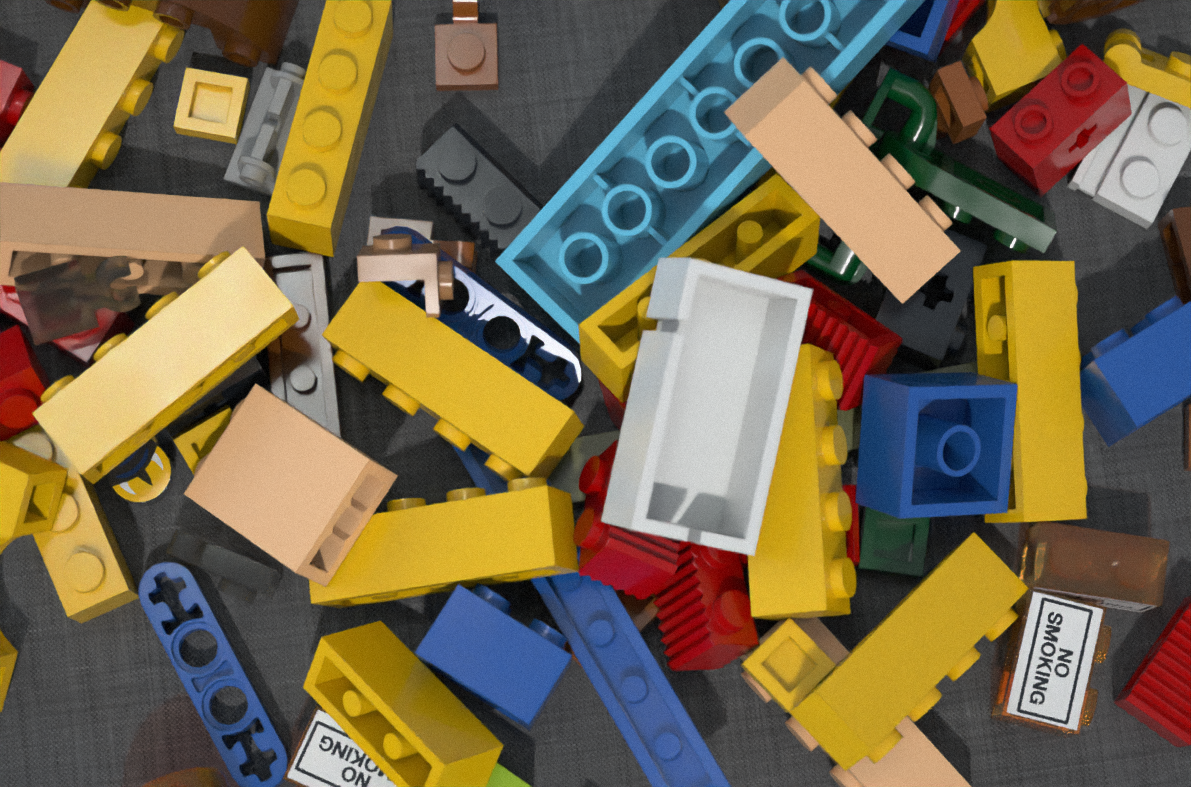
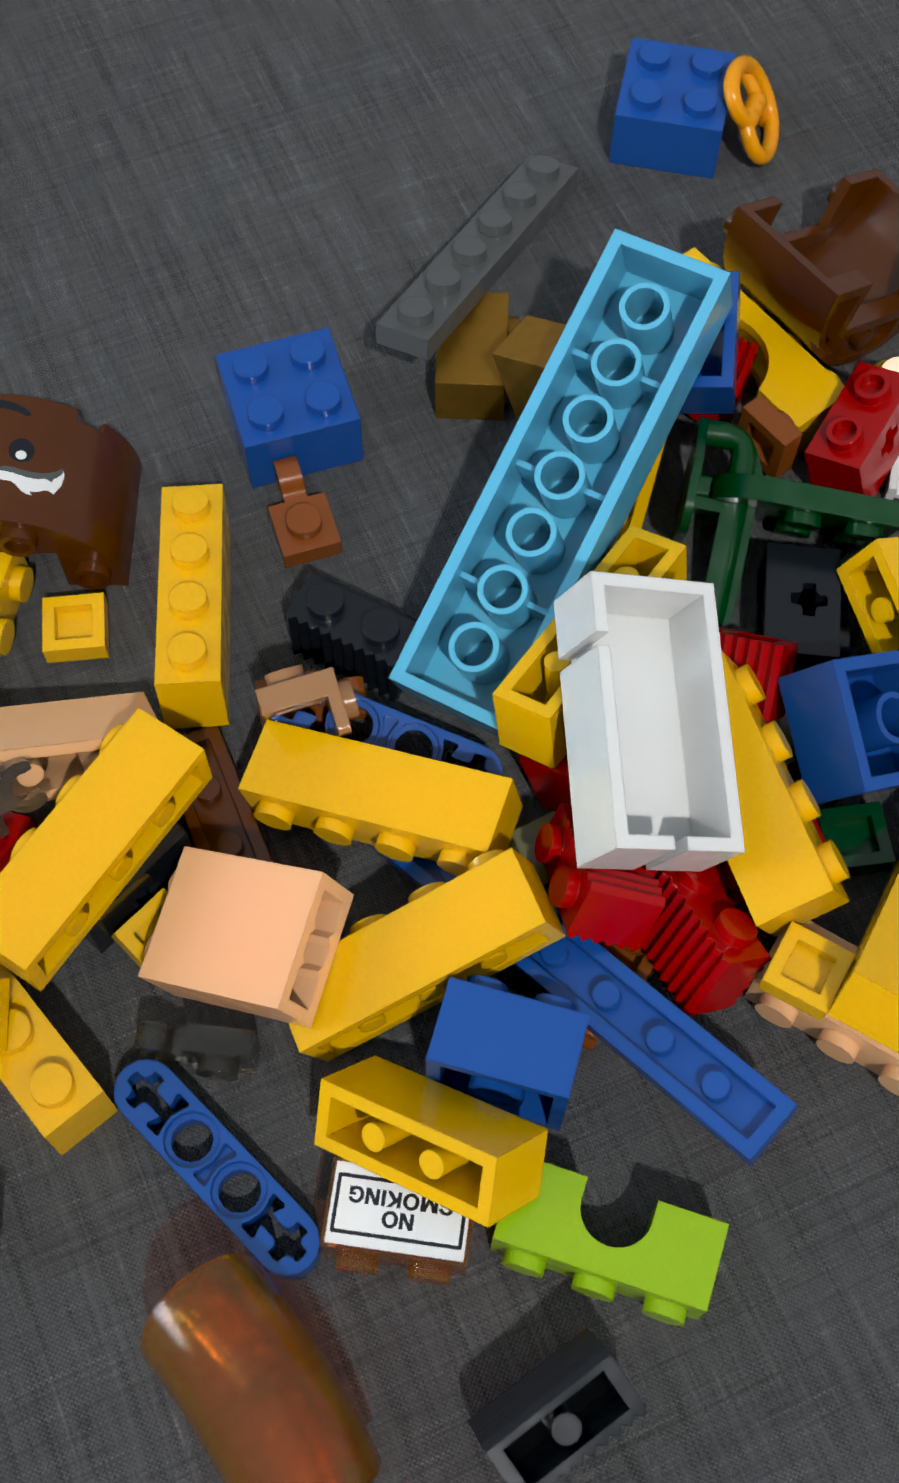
camera: 10 degrees left, 15 degrees down
(143, 476) = (89, 984): tile -> none
(266, 130) = (133, 634): light grey hinge -> none
(842, 180) = (700, 496): light nougat brick -> none

